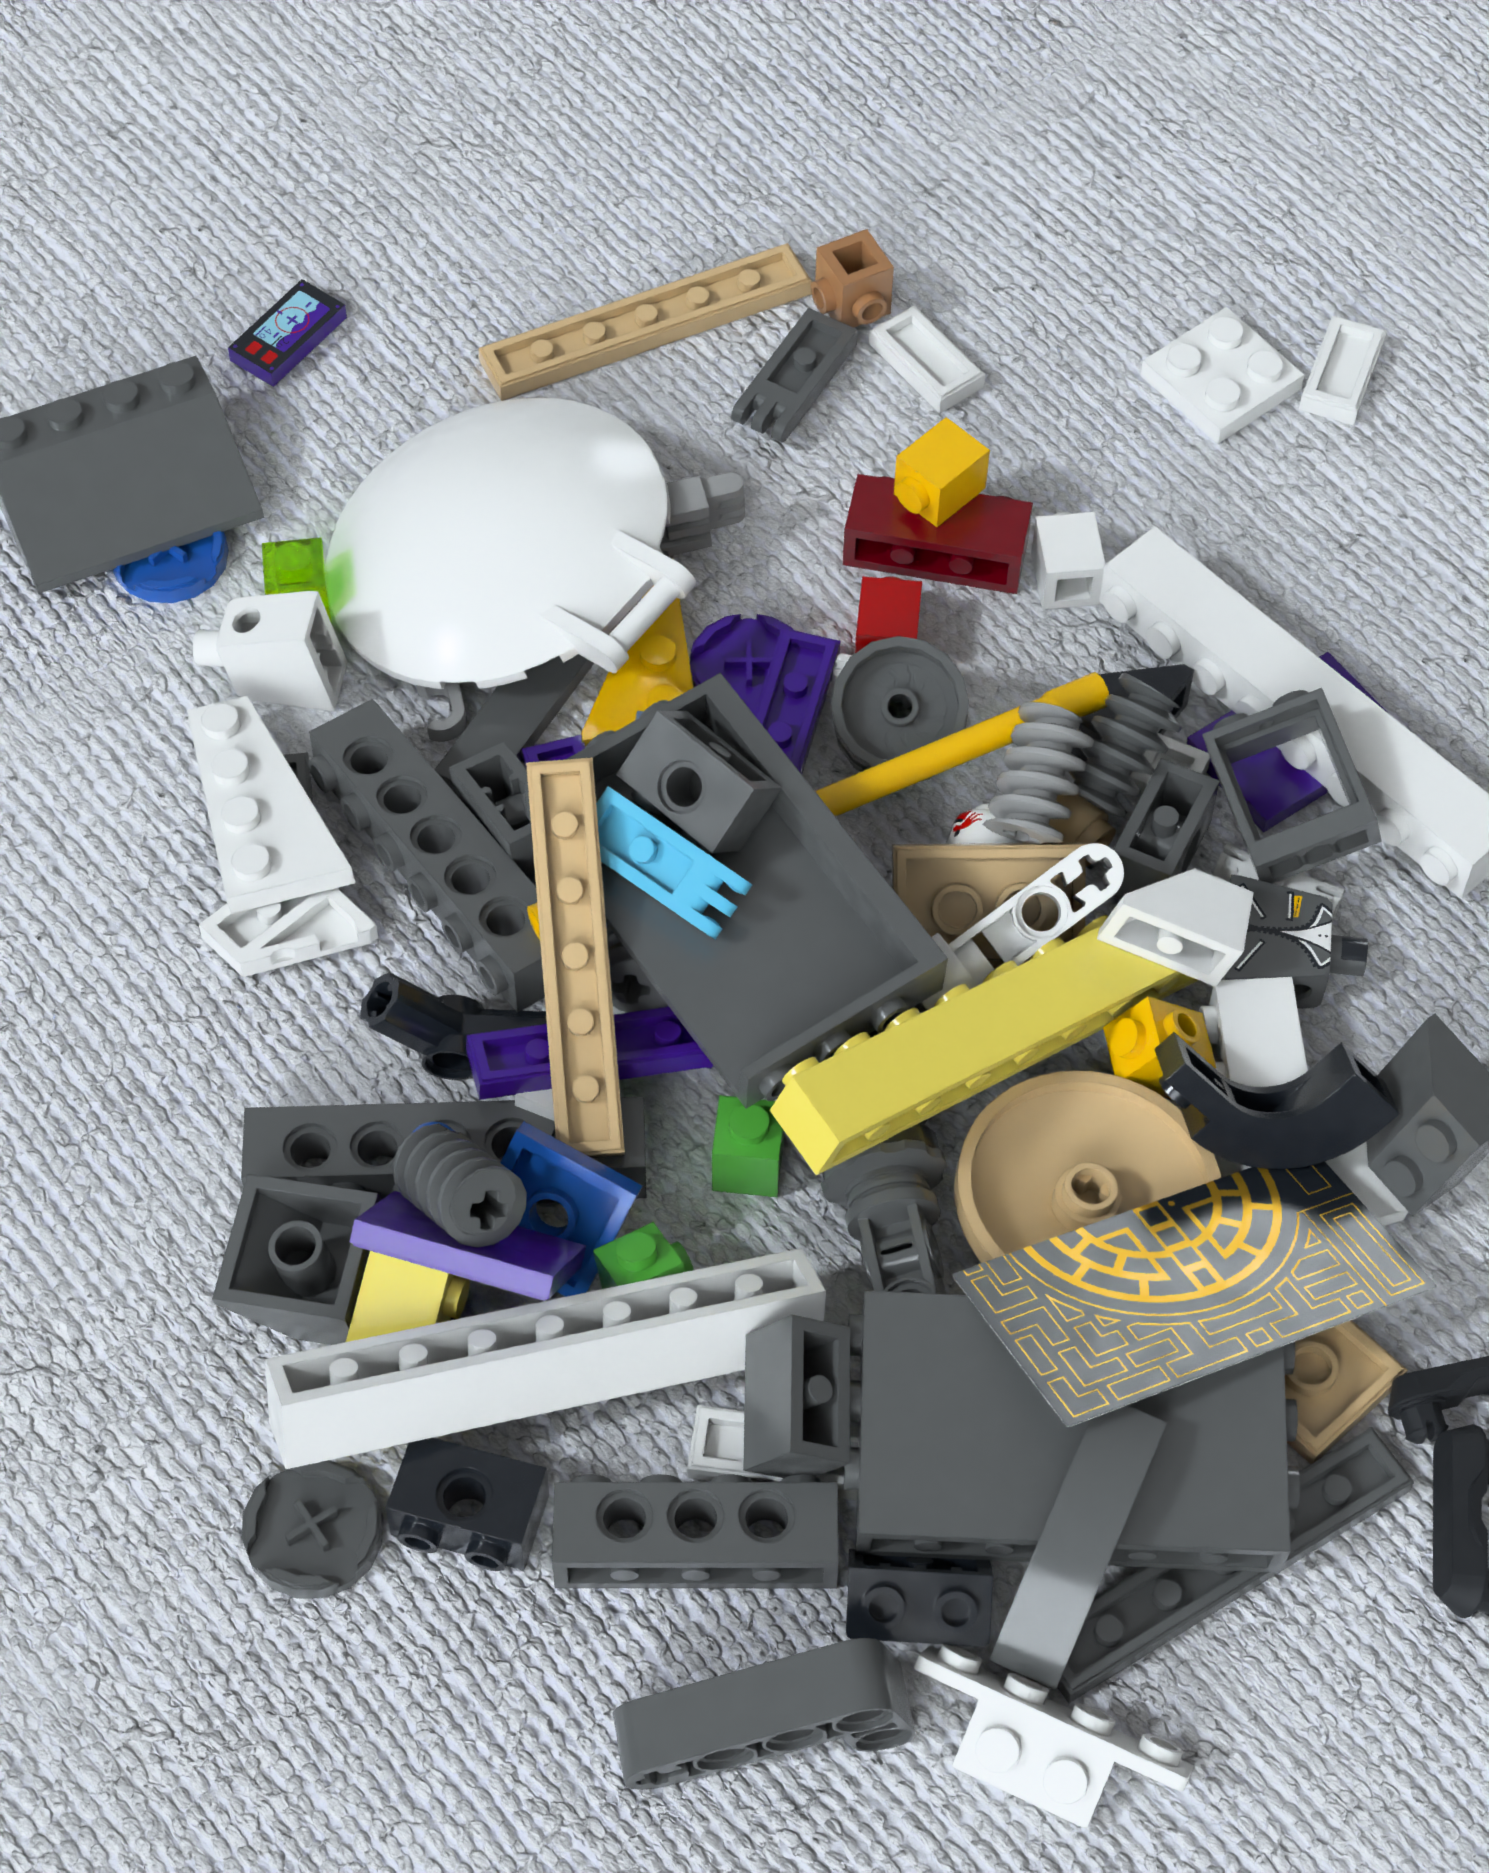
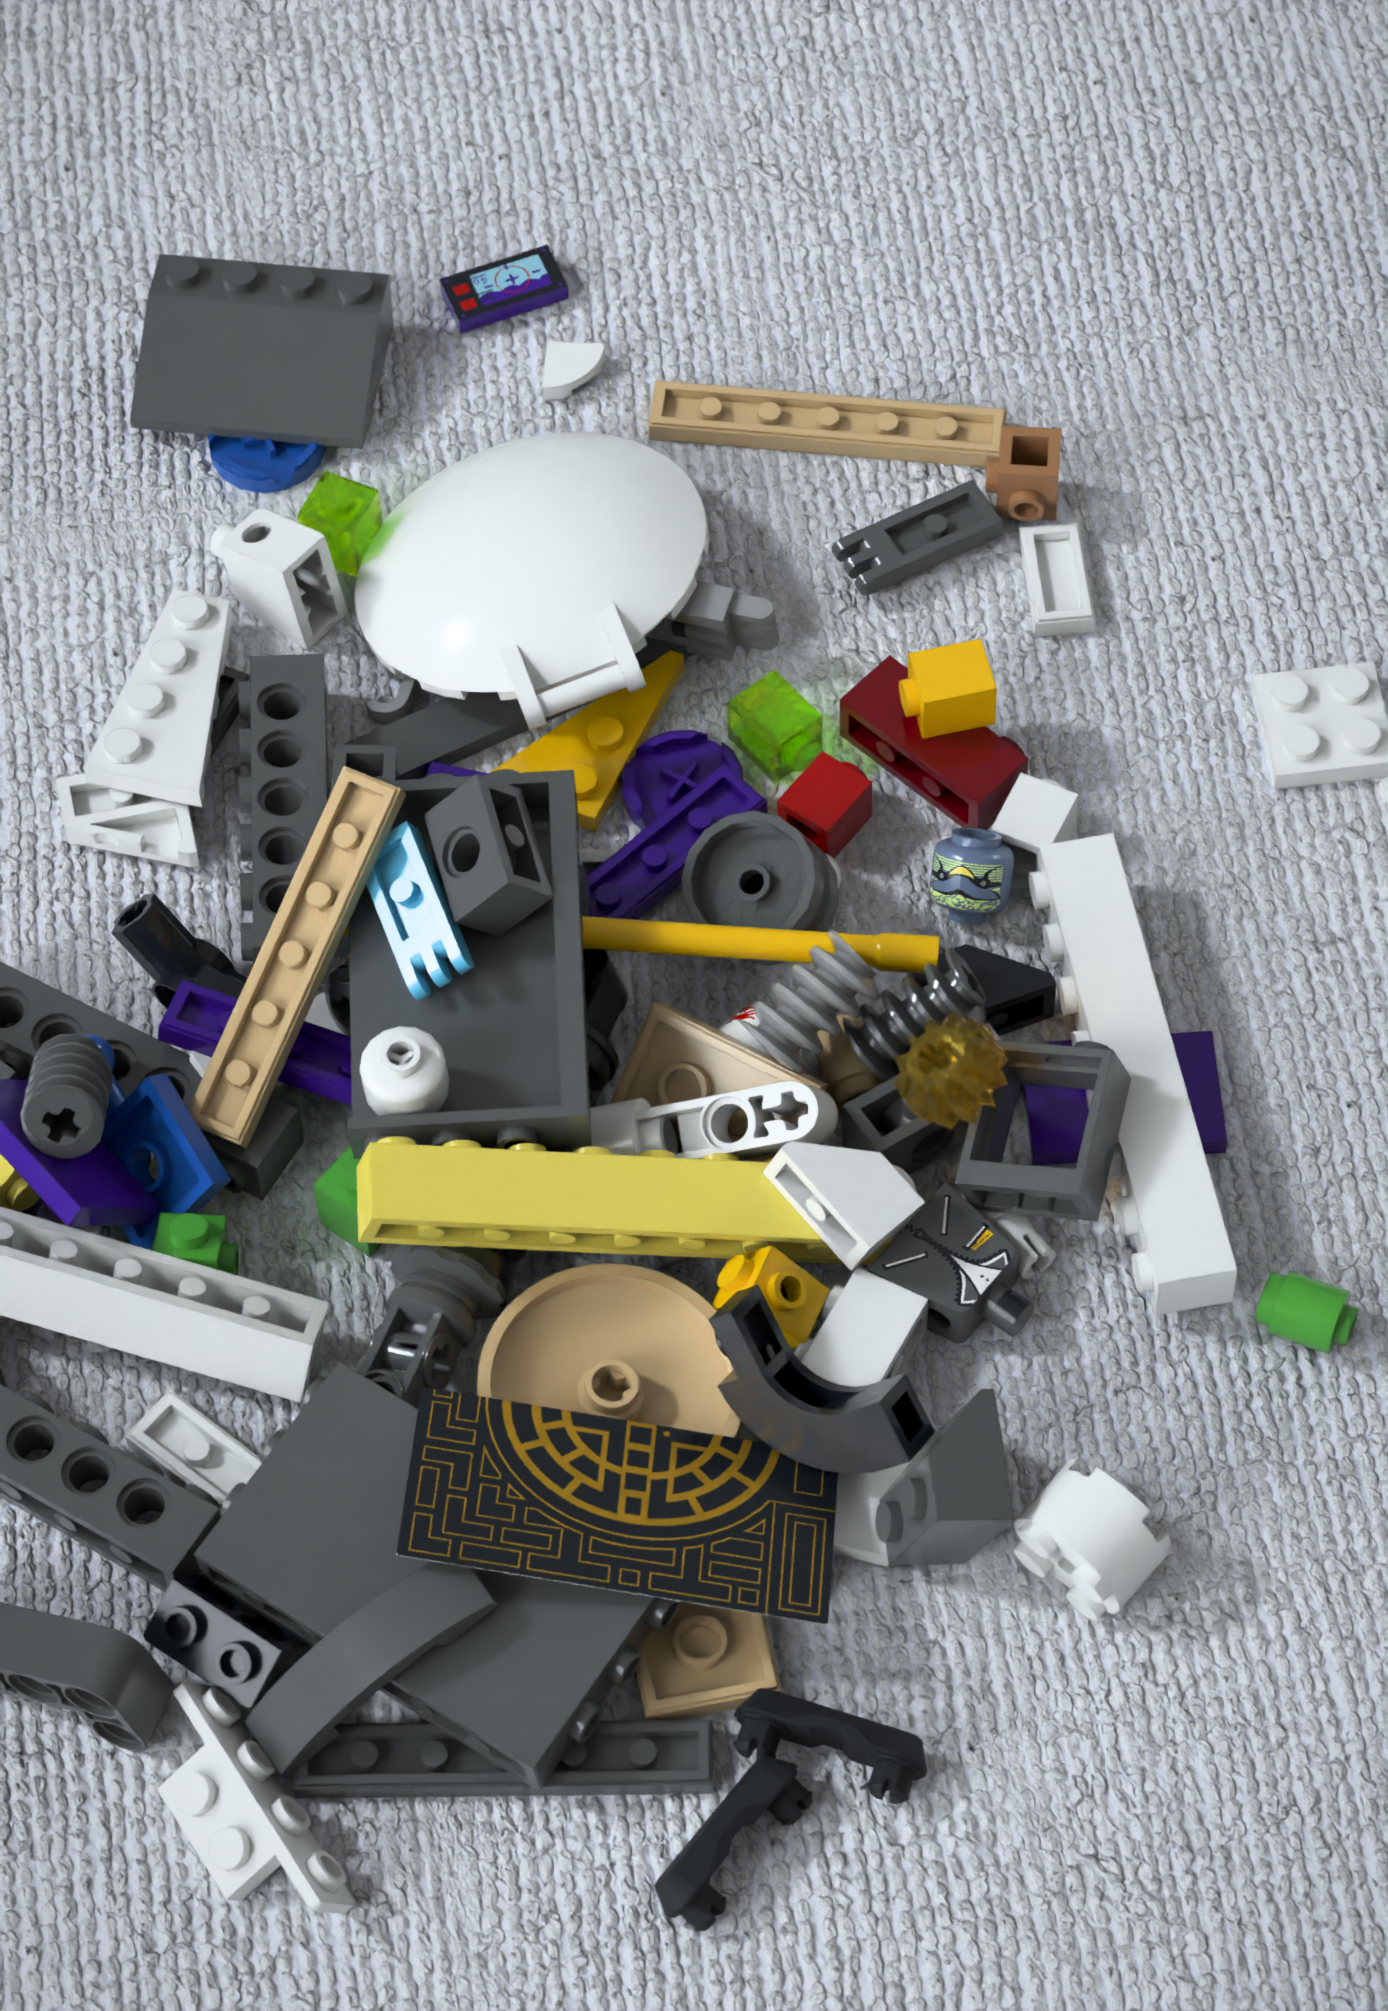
camera: 35 degrees right, 0 degrees up
(392, 371) = (570, 366): none -> white tile
(761, 1005) = (404, 1072): none -> white head
(797, 580) = (775, 726): none -> clear neon green brick
(797, 1398) = (229, 1420): dark grey brick -> none
(1053, 619) = (971, 875): none -> sand blue head
(1208, 789) = (951, 1071): none -> clear yellow gear

